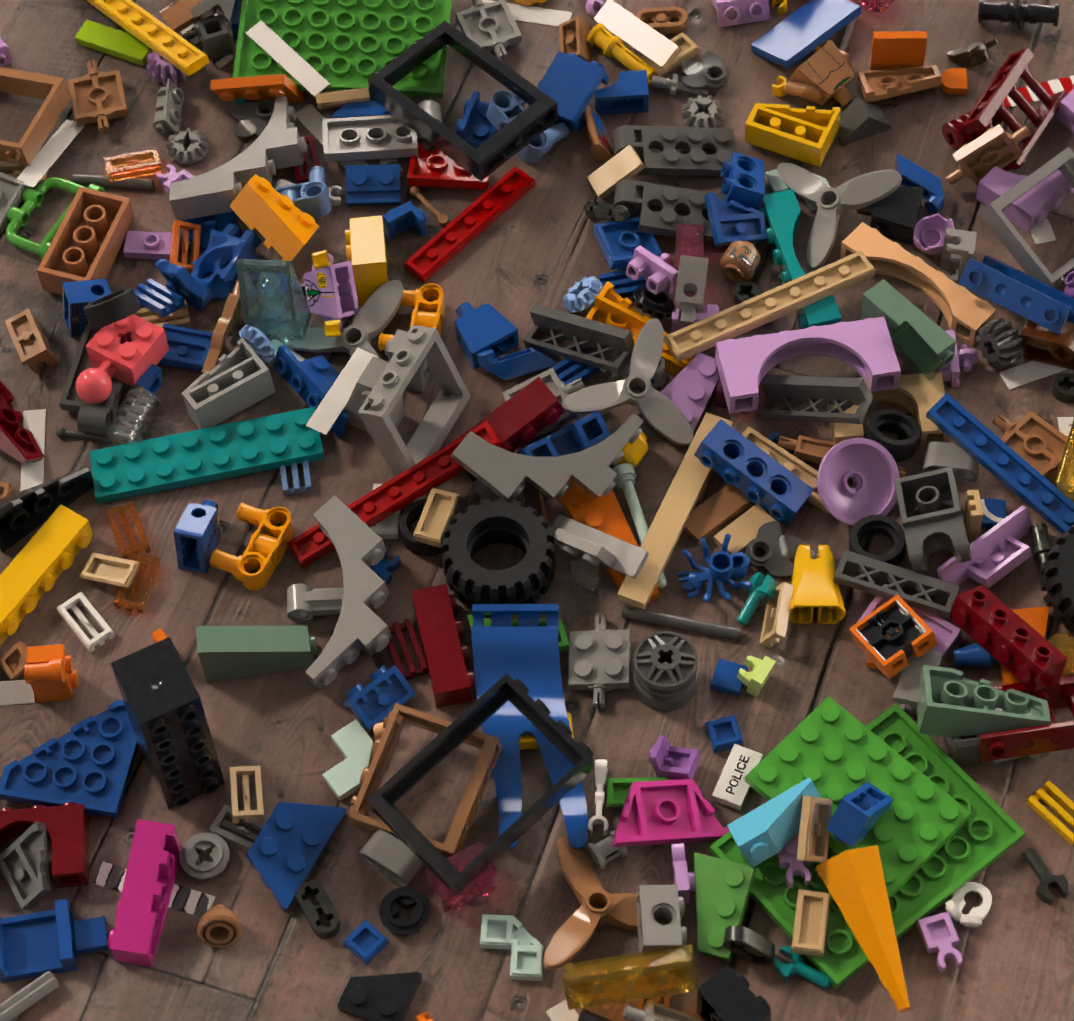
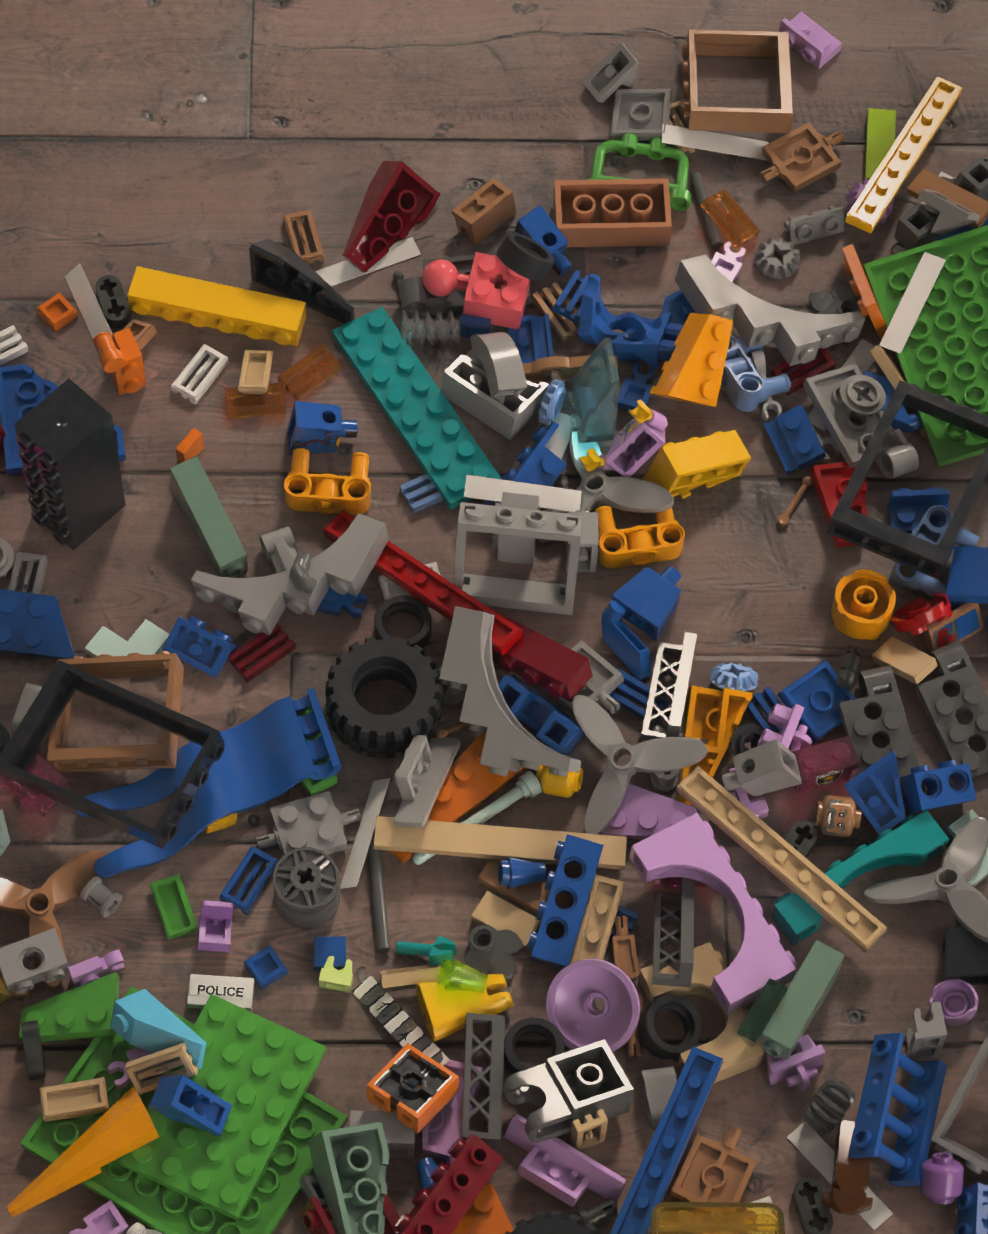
camera: 65 degrees right, 5 degrees up
(148, 245) = (643, 272): lavender plate -> none
(176, 225) = (670, 292): orange tile -> none
(206, 356) = (500, 362): none -> light grey arch
(247, 814) = (37, 578): tan tile -> none
(356, 578) = (299, 574): none -> dark grey arm
(362, 113) = (859, 384): none -> light grey gear
(403, 218) = (762, 480): blue bracket -> none
(436, 517) = (409, 625): tan tile -> none
(442, 645) = (272, 679): dark red brick -> none
(469, 224) = (781, 543): red tile -> none
(554, 183) = (863, 605): none -> light orange brick
(580, 145) = (919, 613): none -> red plate
(600, 777) = (184, 866): white piece -> none
(617, 612) = (364, 833): none -> white sticker
(648, 741) = (245, 906): none -> blue tile
(666, 815) = (150, 936): dark pink wing -> none
(710, 503) = (519, 872): none -> blue cone
(722, 569) = (446, 904): blue animal -> none
(799, 570) = (459, 976): none -> clear neon green cone
(800, 968) = (33, 1107): teal bar -> none
(813, 641) = (396, 1019): none -> sticker
(962, 309) = (903, 948): light nougat arch -> none
(993, 512) = (616, 1154): blue tile -> none

